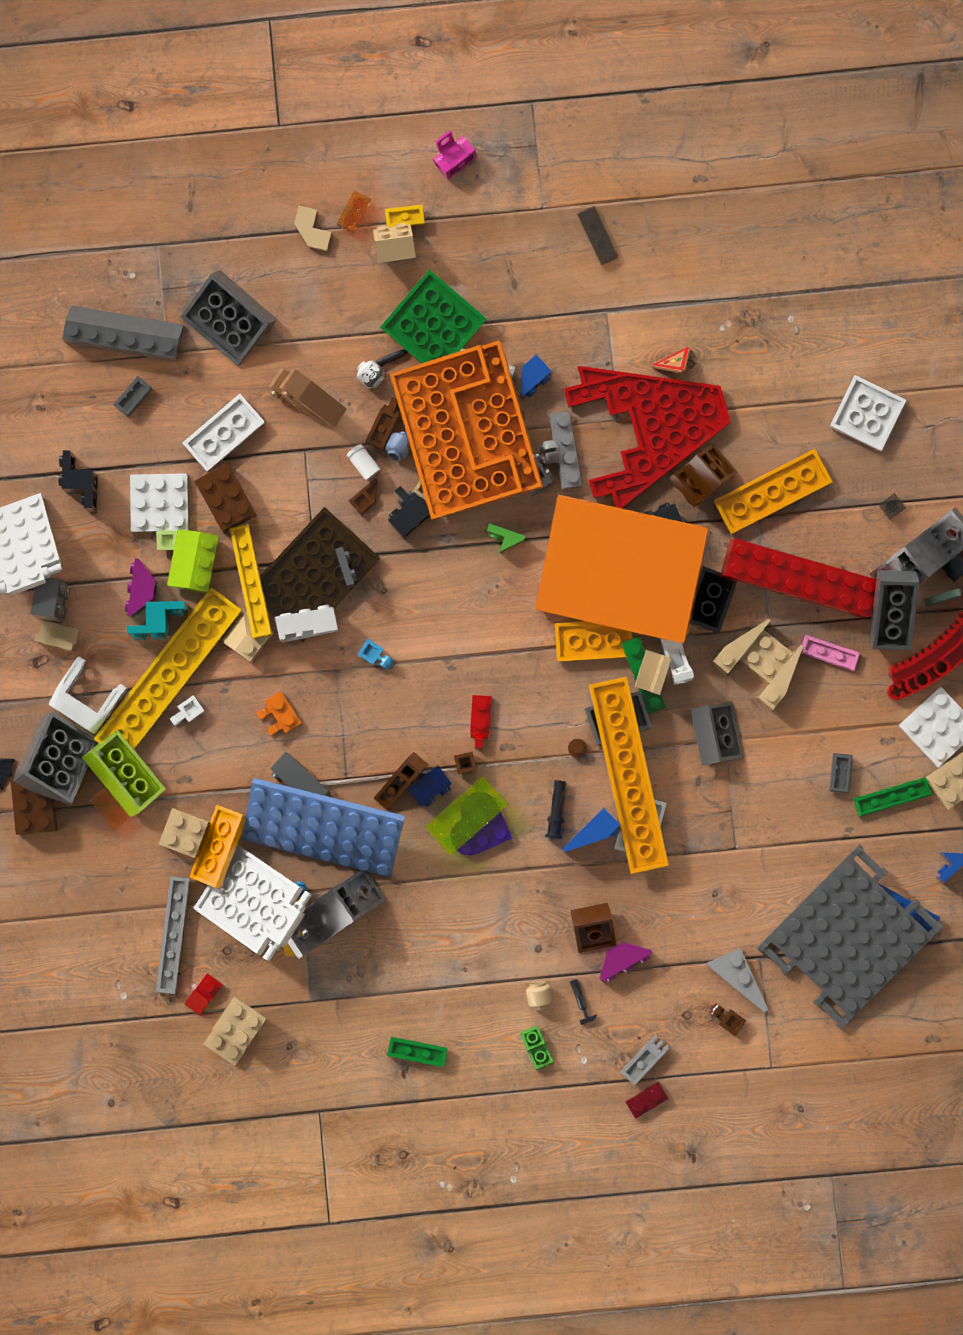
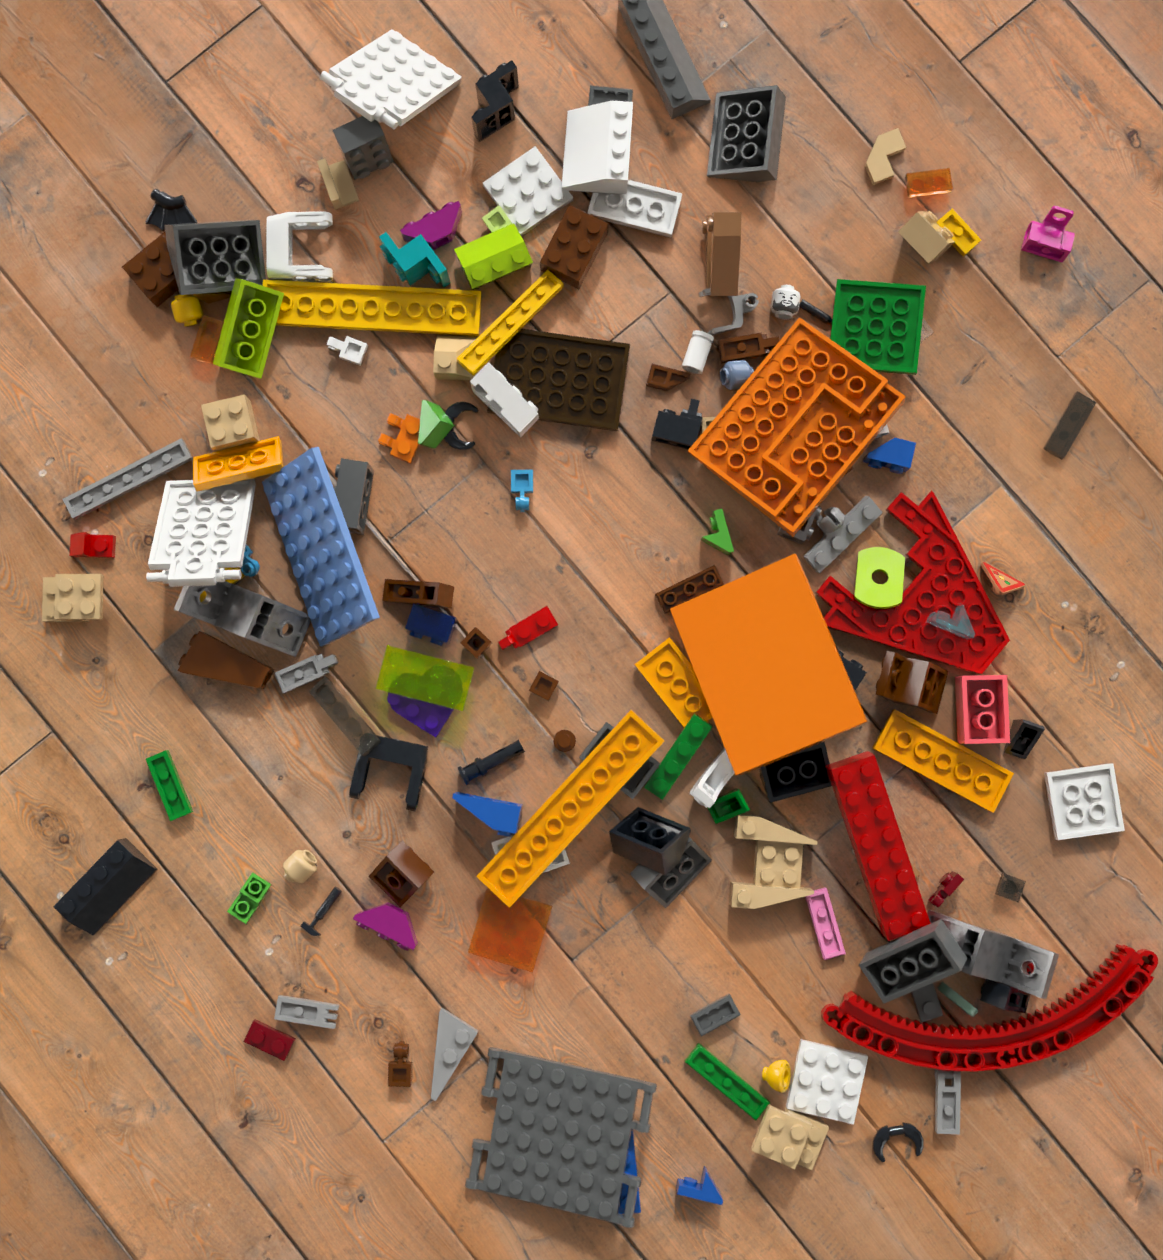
camera: 60 degrees right, 0 degrees up
(78, 810) = (186, 309): none -> yellow head
(164, 431) = (598, 148): none -> white slope
(286, 687) = (433, 425): none -> bright green slope
(303, 681) = (453, 412): none -> black piece
(349, 575) = (581, 404): dark grey plate -> none
(352, 412) = (739, 307): none -> light grey piece
(355, 954) = (221, 662): none -> reddish brown slope
(401, 900) = (304, 672): none -> light grey hinge
(454, 891) = (345, 716): none -> clear smoke plate
(459, 1144) = (105, 887): none -> black slope
(502, 874) = (397, 752): none -> black connector
(528, 597) = (701, 582): none -> reddish brown tile
(528, 736) = (543, 685): none -> reddish brown plate
(616, 461) = (879, 595): none -> piece
(653, 672) = (687, 764): tan panel -> none
(685, 415) = (958, 625): none -> clear light blue slope
(686, 877) = (511, 933): none -> clear orange plate
(688, 734) = (650, 840): none -> black slope
(702, 664) = (728, 806): none -> green slope
(755, 439) = (982, 709): none -> coral brick
(795, 425) = (1023, 738): none -> black slope
(860, 547) = (947, 886): none -> dark red plate
(911, 757) = (777, 1075): none -> yellow brick
(930, 619) = (927, 1003): none -> dark grey plate

